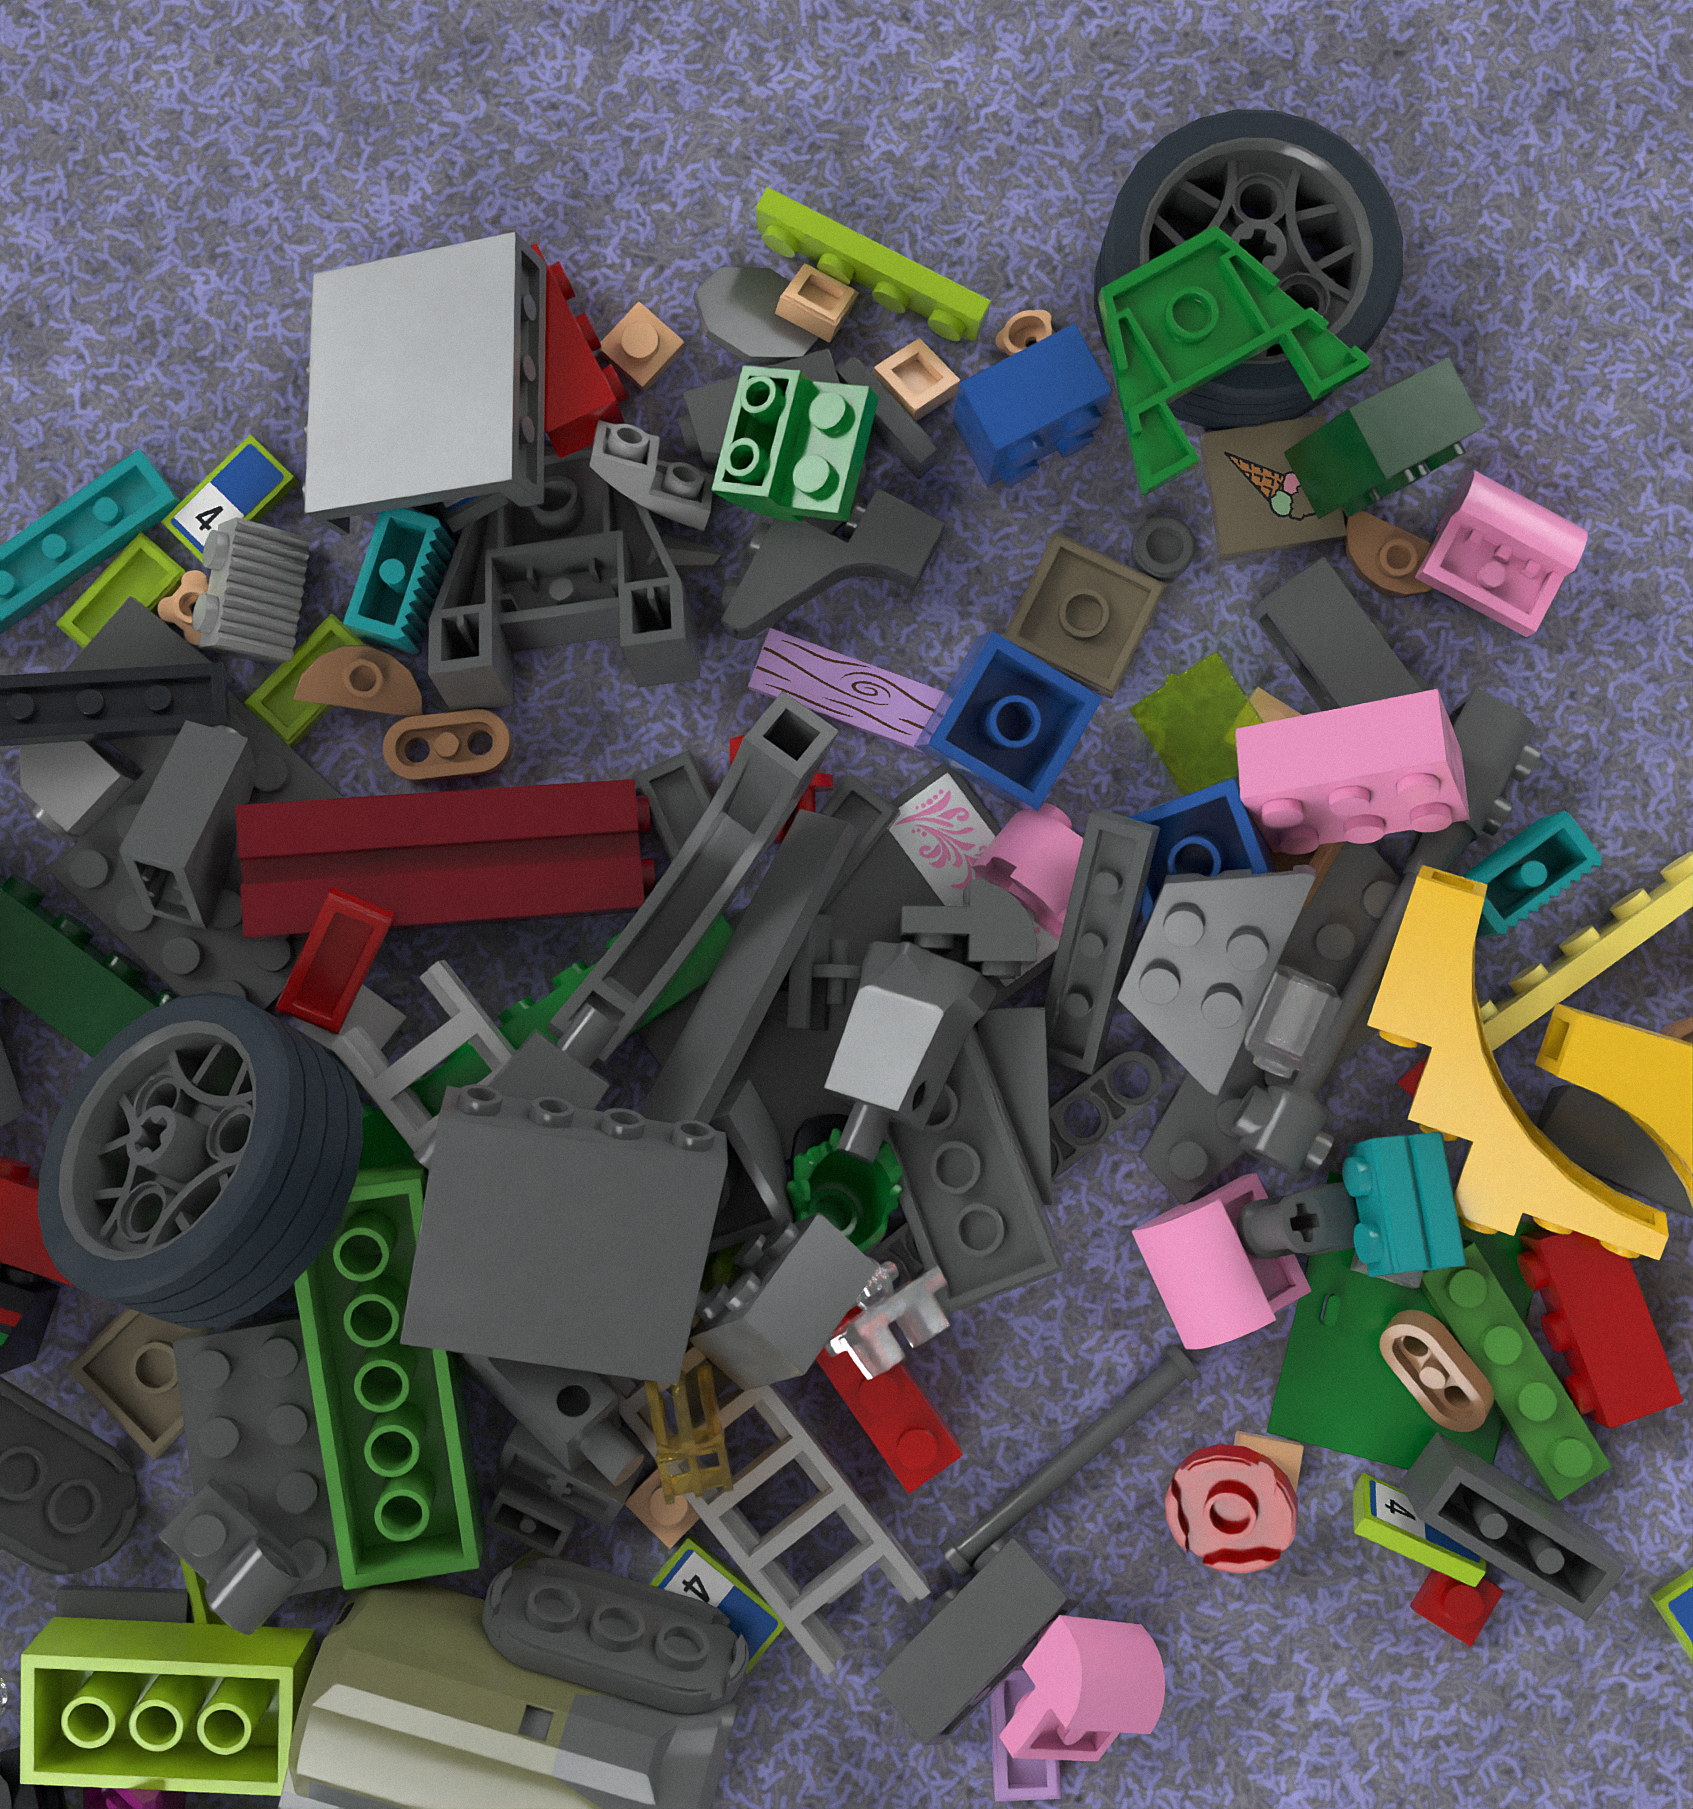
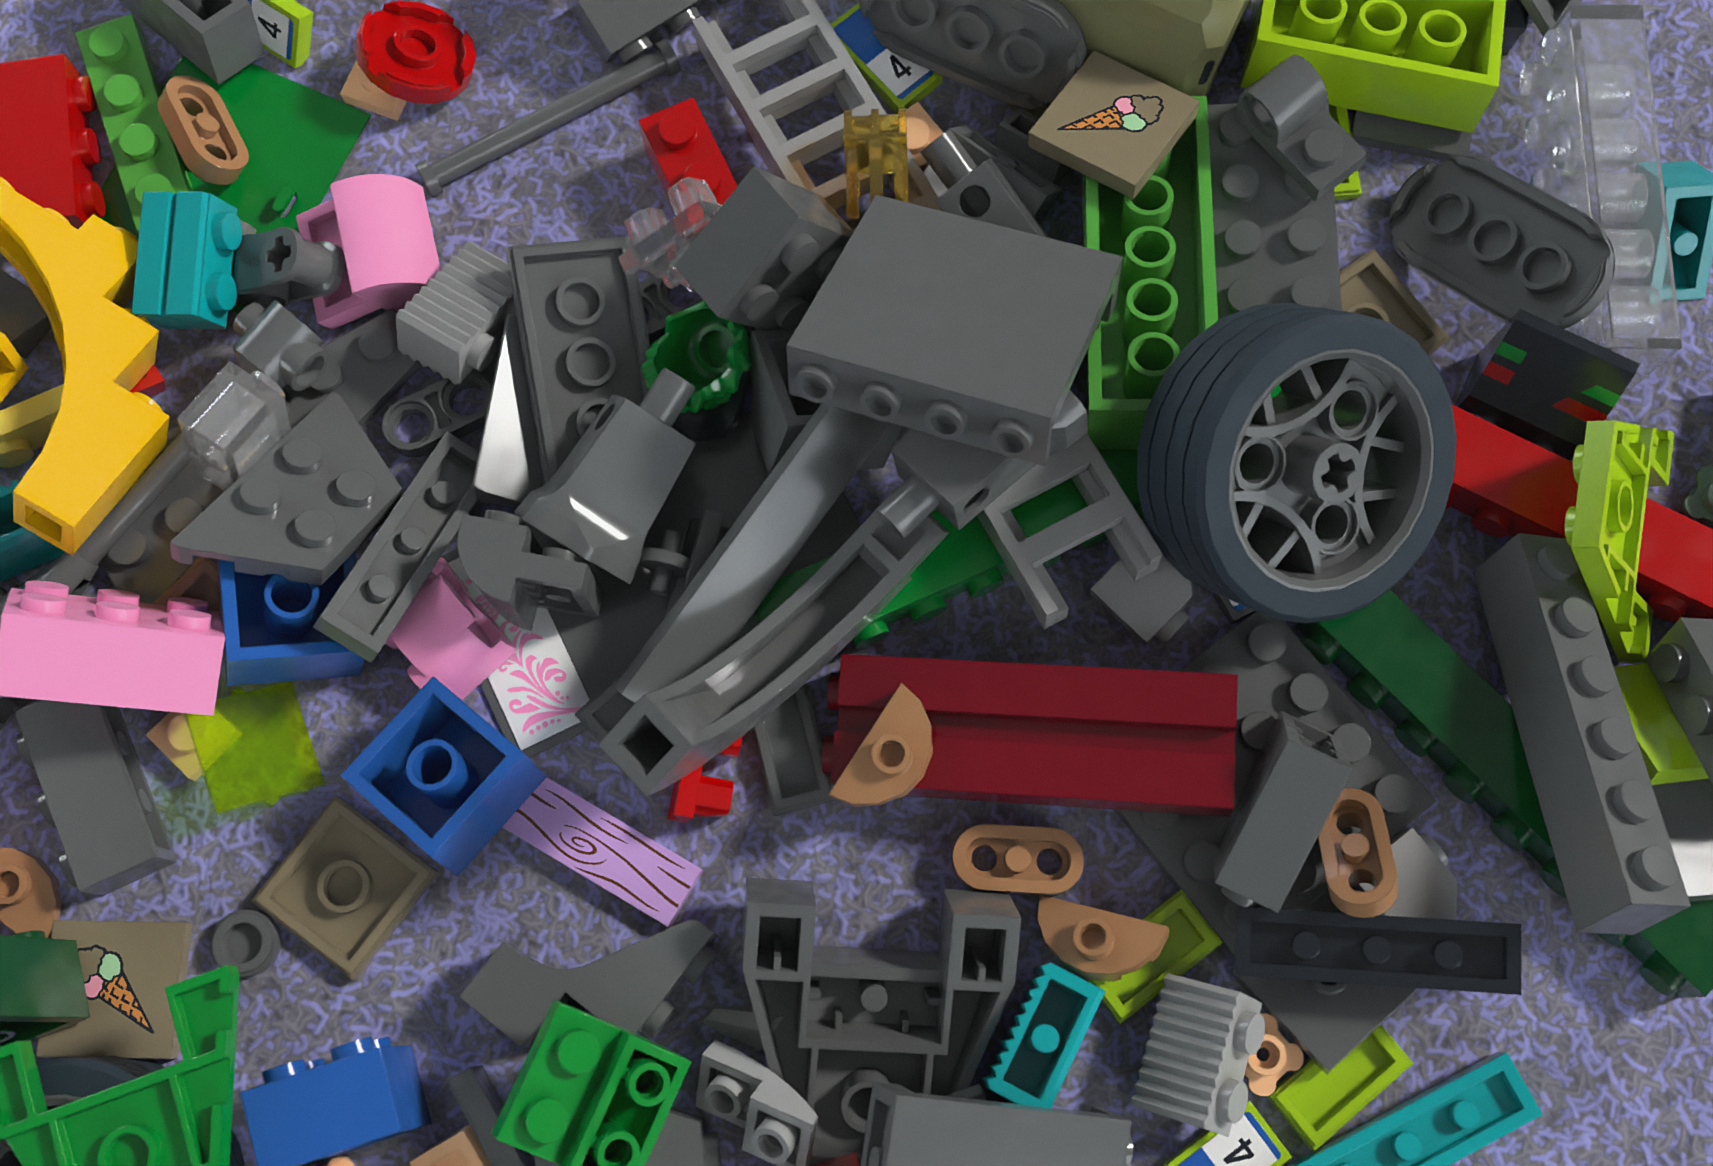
camera: 170 degrees left, 10 degrees down
(110, 790) = (1358, 856): none -> medium nougat plate
(334, 960) = (1150, 640): red tile -> none
(440, 1532) = (1113, 124): none -> dark tan tile
(576, 807) = (891, 755): none -> medium nougat plate
(1104, 1202) = (458, 315): none -> light grey brick

